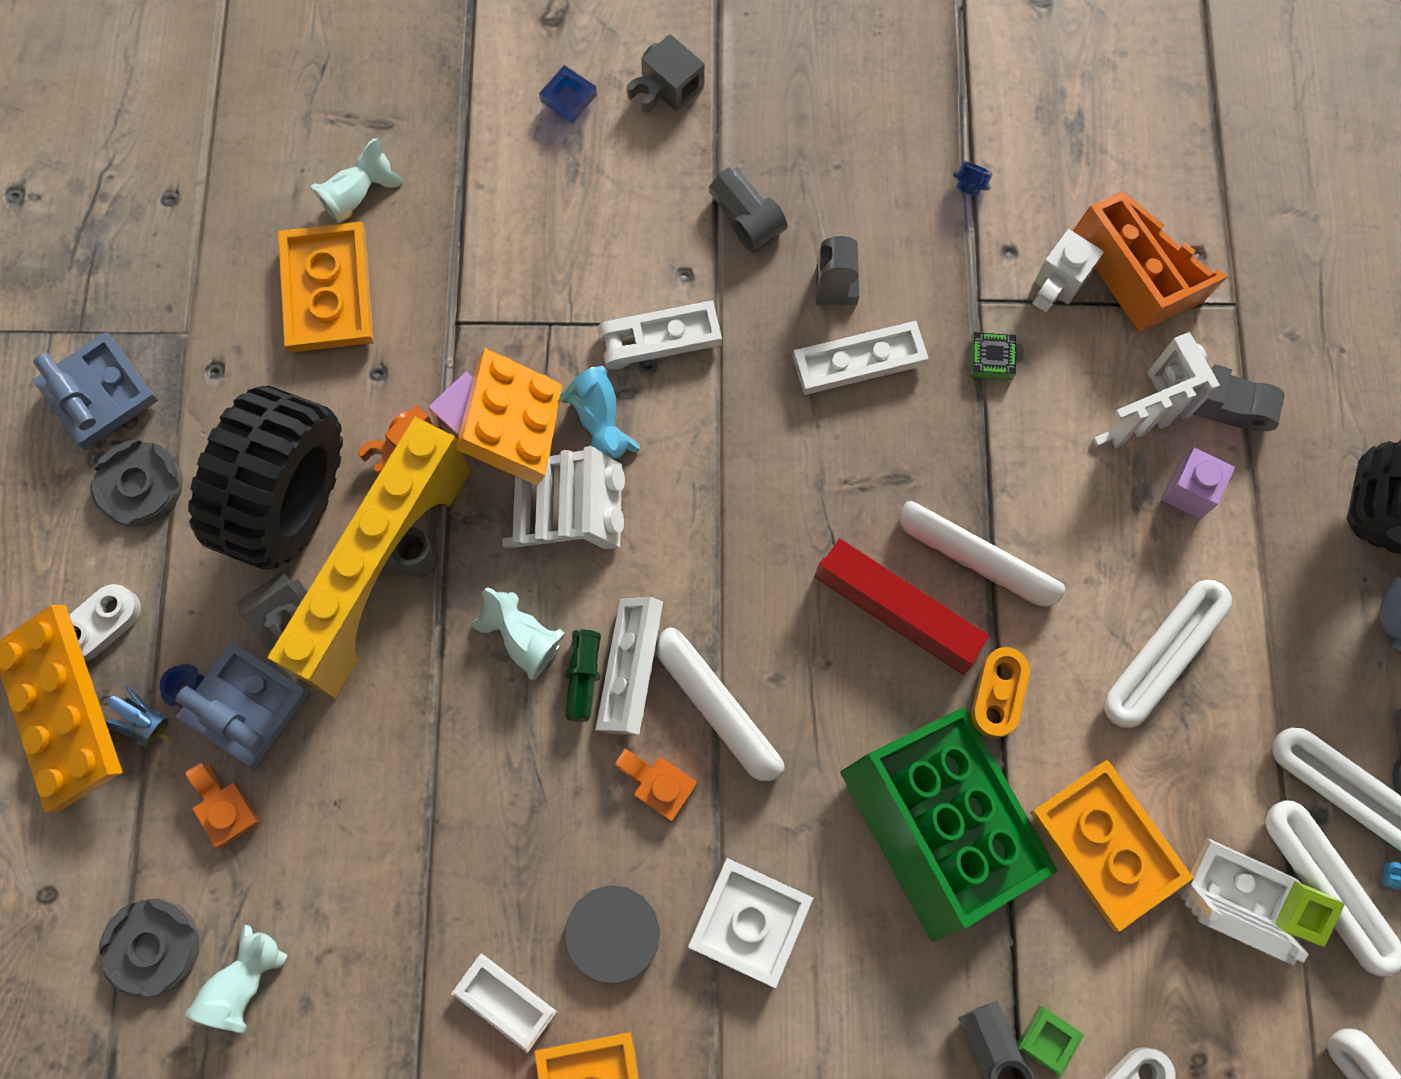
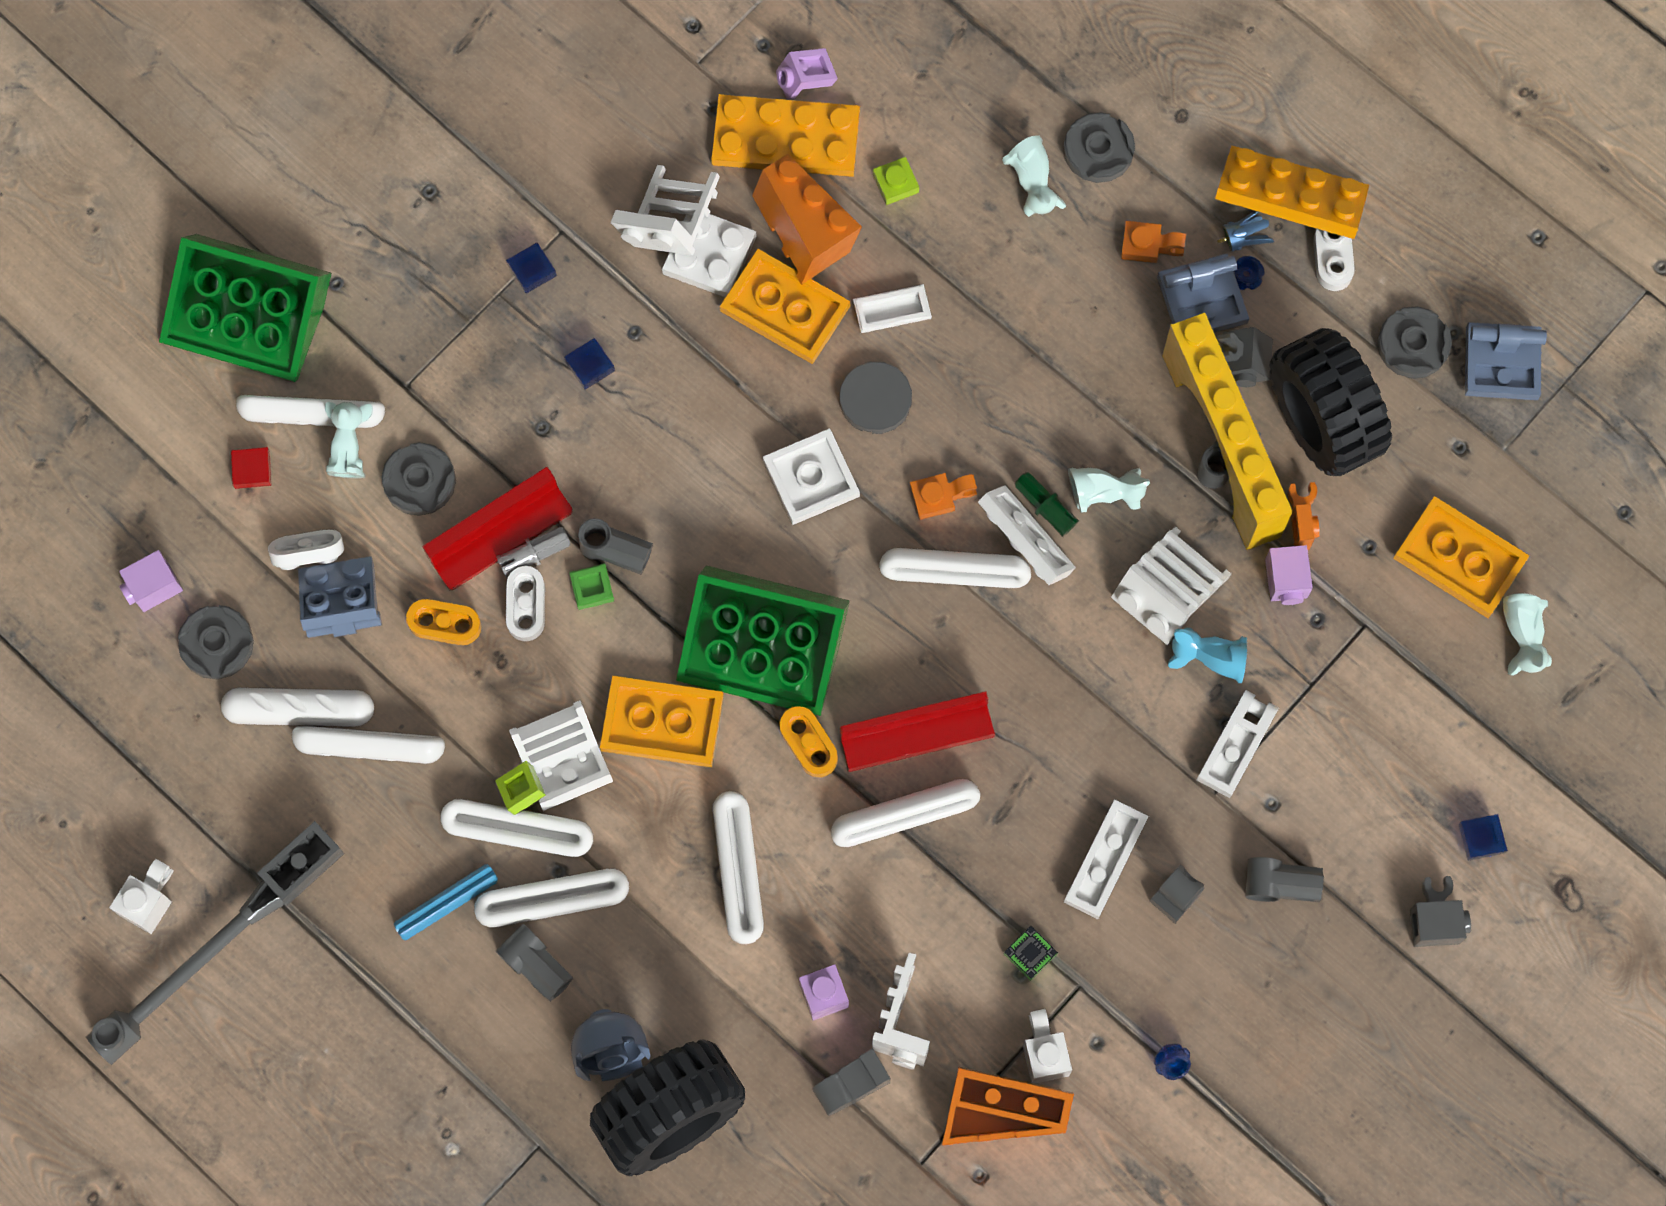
camera: 135 degrees right, 0 degrees up
(510, 417) = (1253, 586): light orange plate -> none

